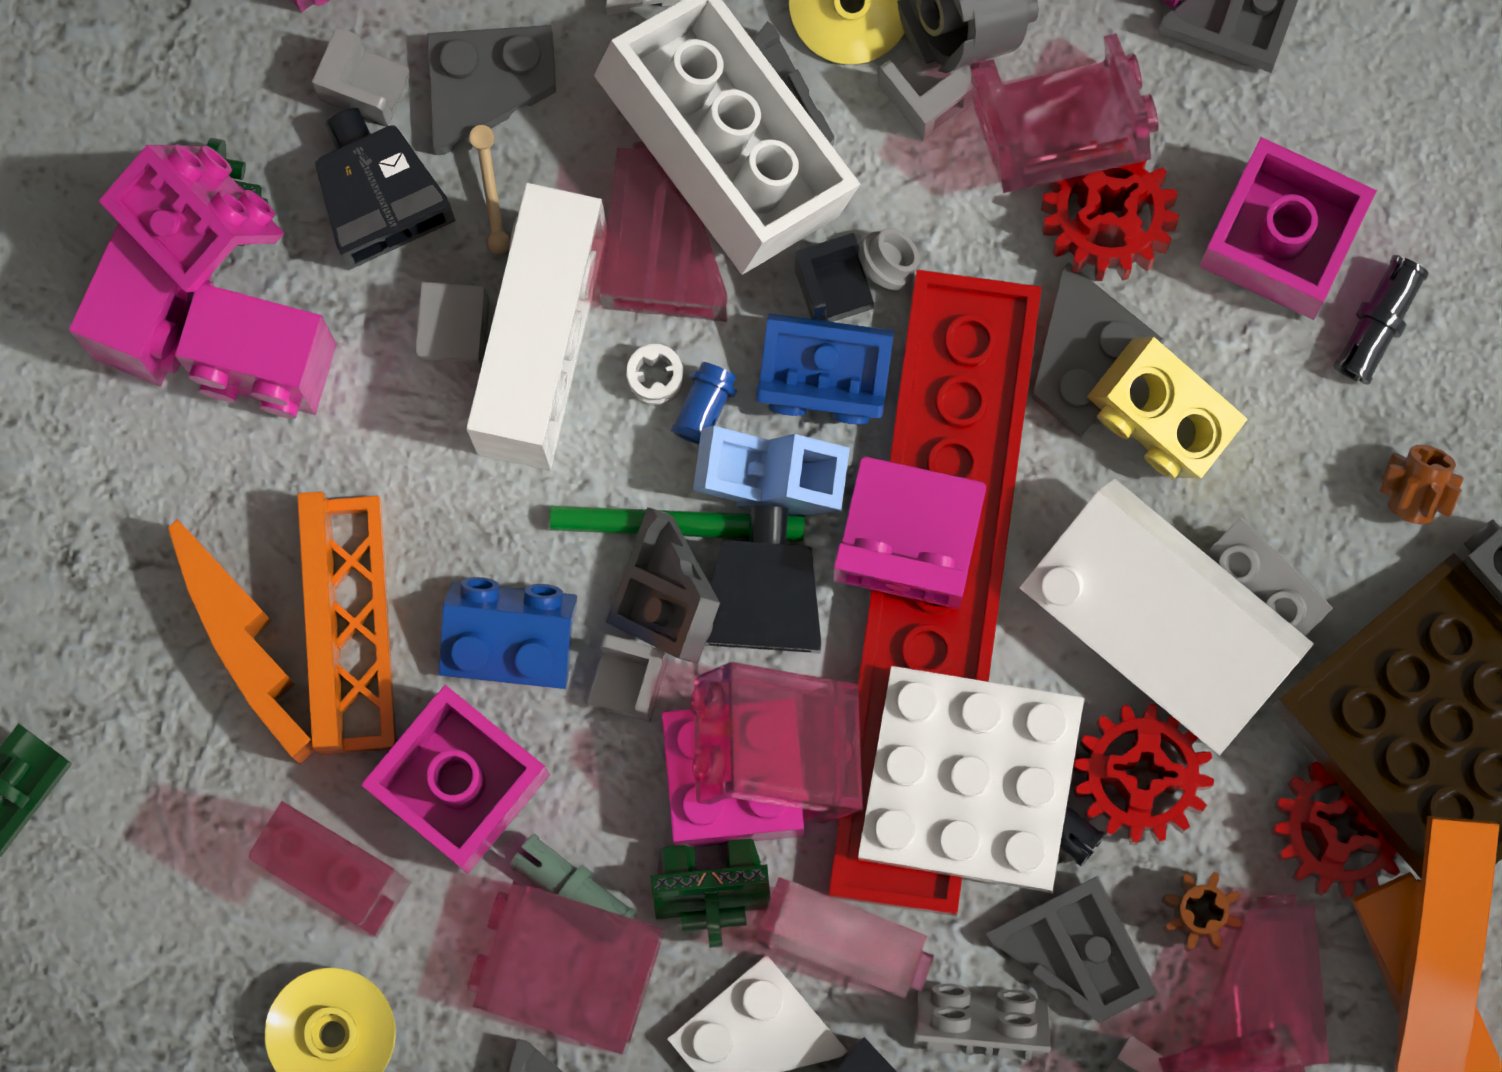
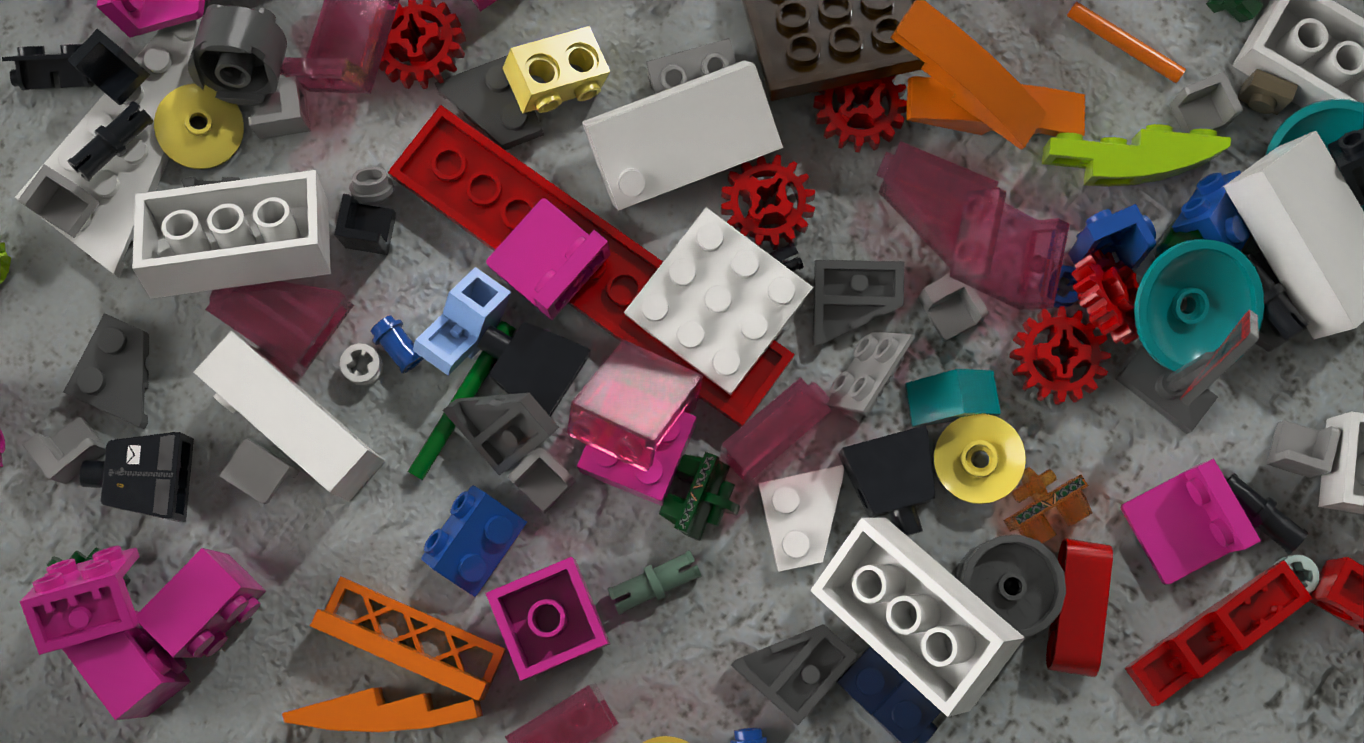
camera: 65 degrees left, 0 degrees up
(482, 139) = (151, 393): tan hinge -> none
(566, 967) = (702, 611): clear pink panel -> none
(824, 368) = (416, 258): blue bracket -> none
(1218, 904) = (869, 222): dark orange gear -> none

